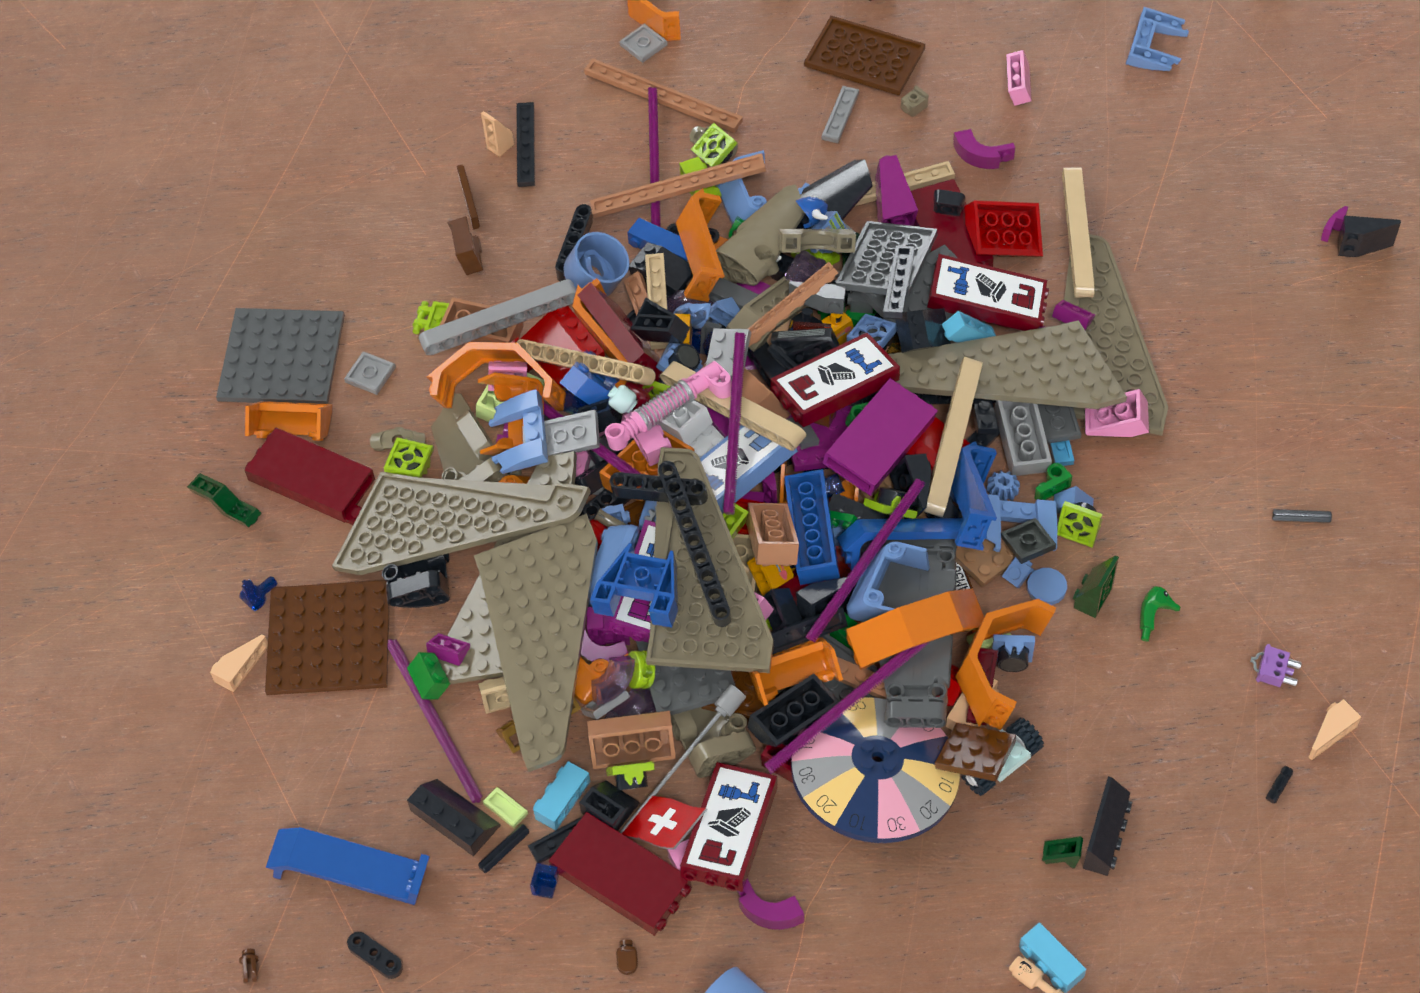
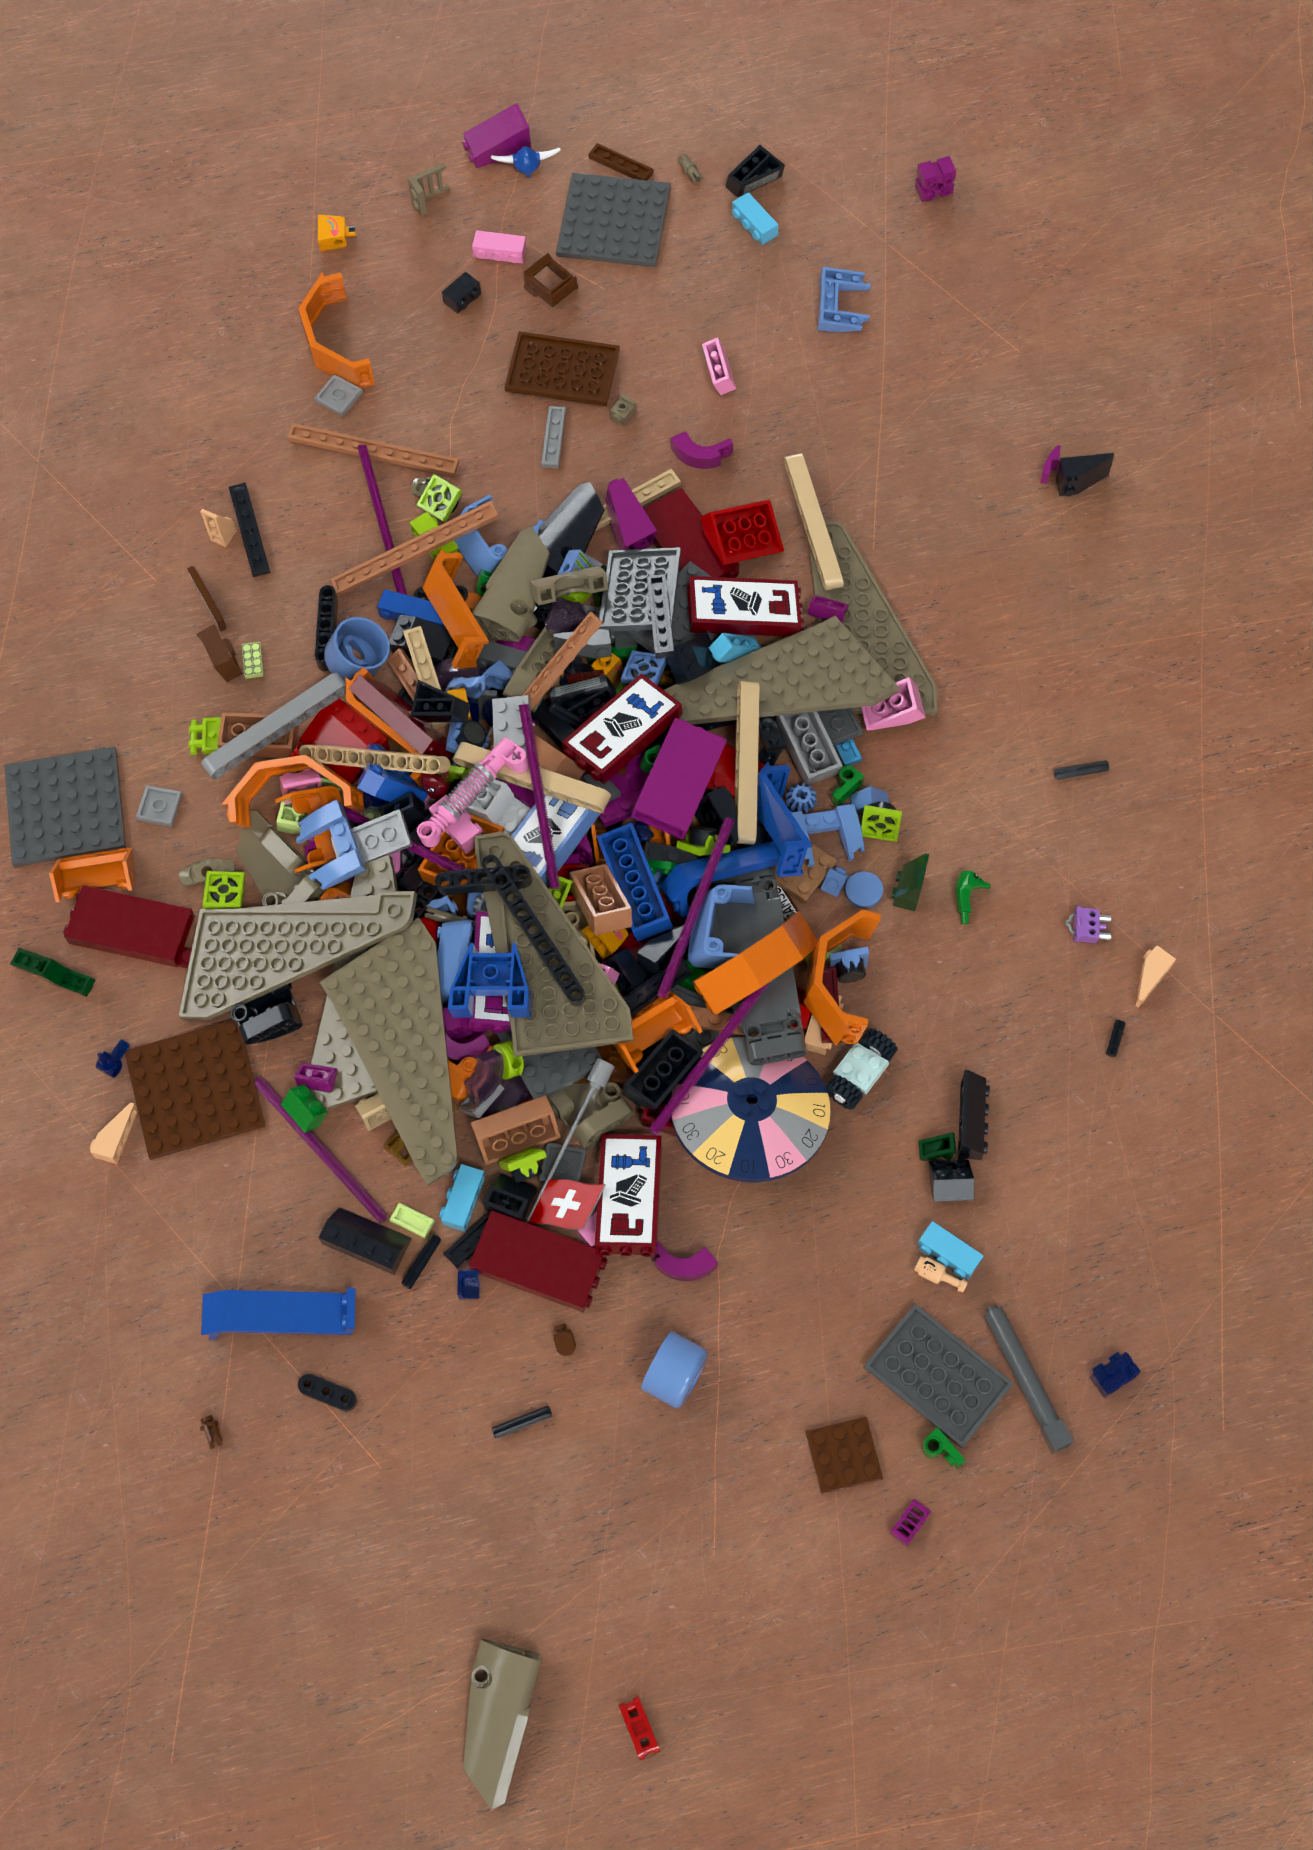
camera: 15 degrees left, 10 degrees up
(496, 259) = (252, 660): none -> yellowish green tile
(622, 399) = (423, 793): light aqua head -> none
(677, 787) = (569, 1167): none -> dark grey plate
(814, 209) = (557, 551): blue helmet -> none
(948, 202) = (683, 516): black piece -> none
(975, 751) = (839, 1072): reddish brown plate -> none
(1028, 540) = (838, 850): pearl dark grey plate -> none
(1070, 887) = (951, 1180): none -> black slope

